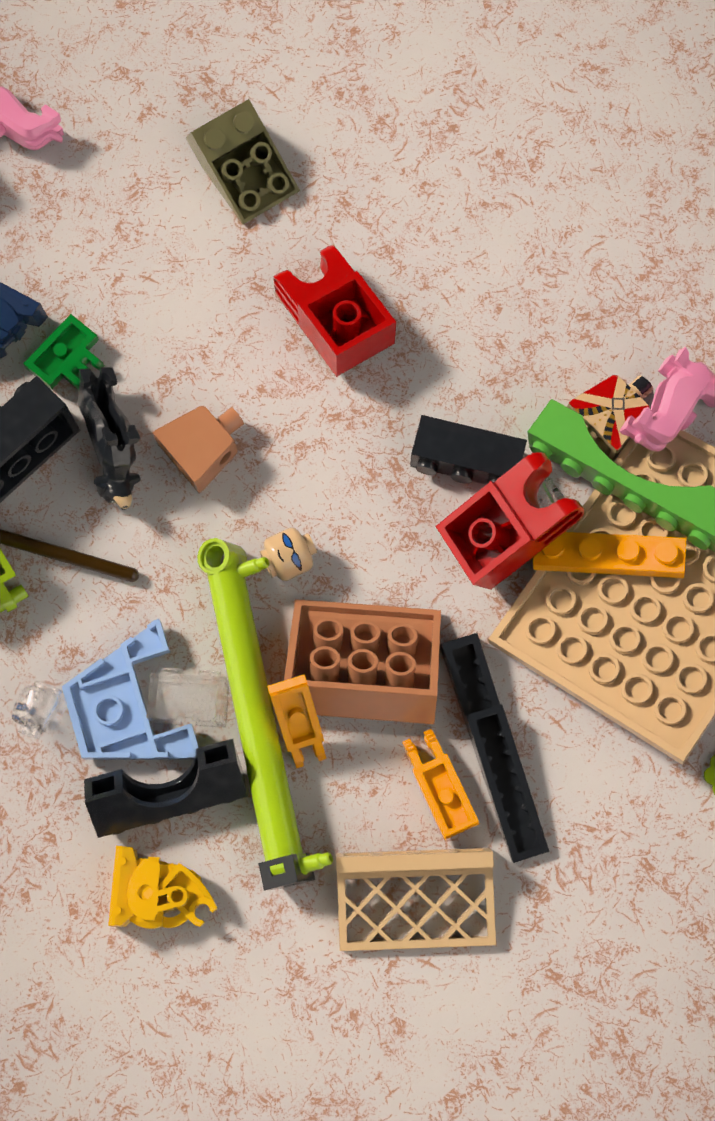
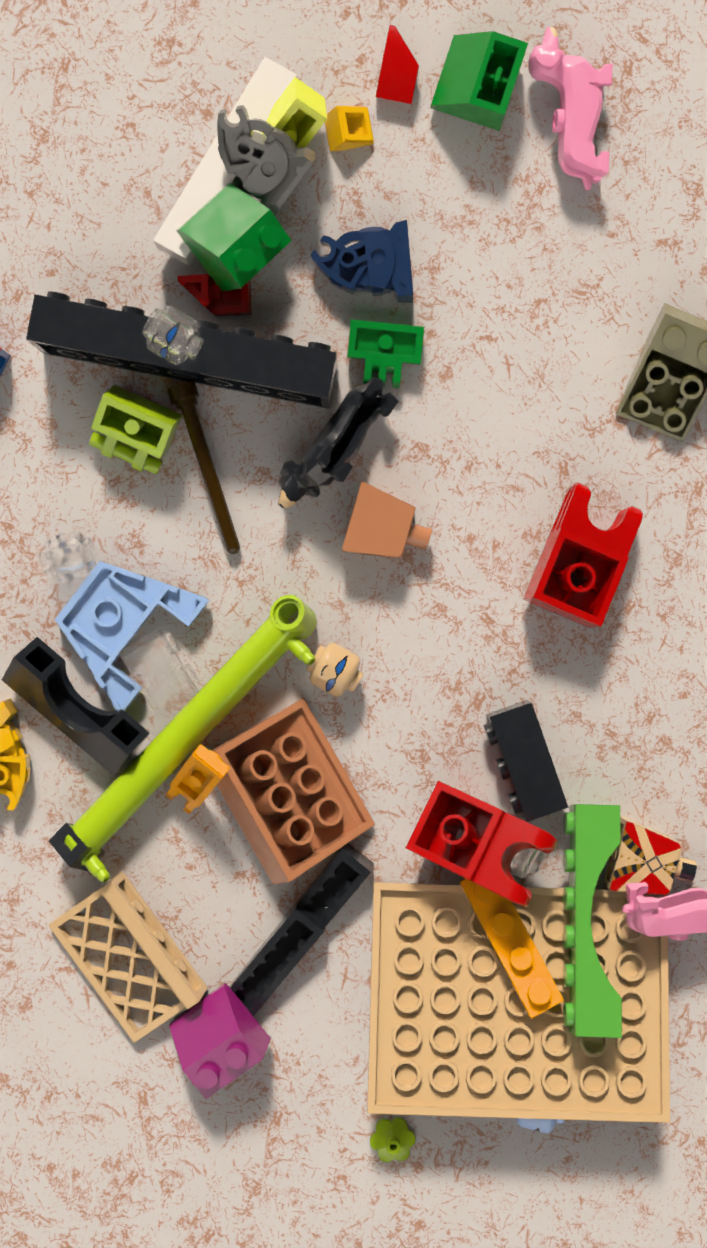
camera: 50 degrees right, 15 degrees up
(441, 788) = (226, 923): light orange hinge -> none
(539, 862) = (218, 1040): none -> magenta slope

